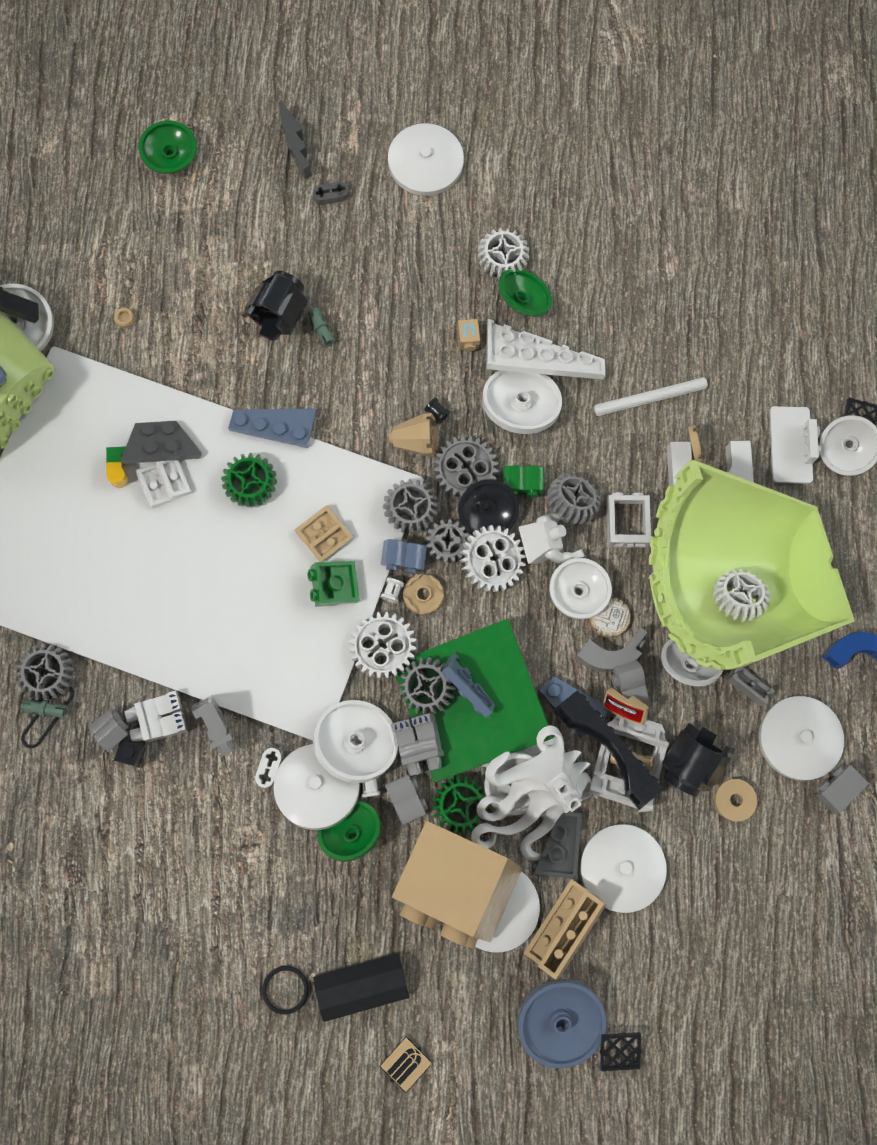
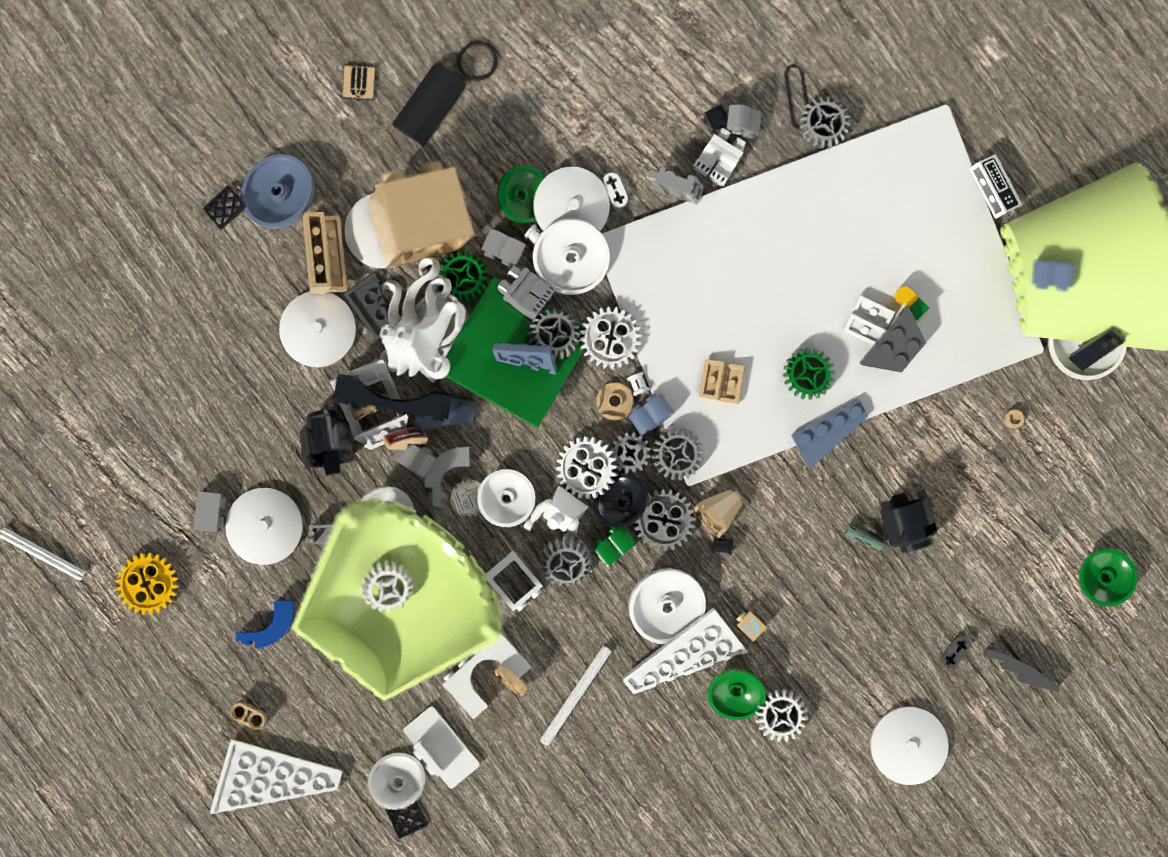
camera: 145 degrees right, 10 degrees up
(44, 708) = (802, 98): sand green pin -> none
(333, 583) = (682, 351): green plate -> none
(747, 796) = (288, 441): tan tile -> none

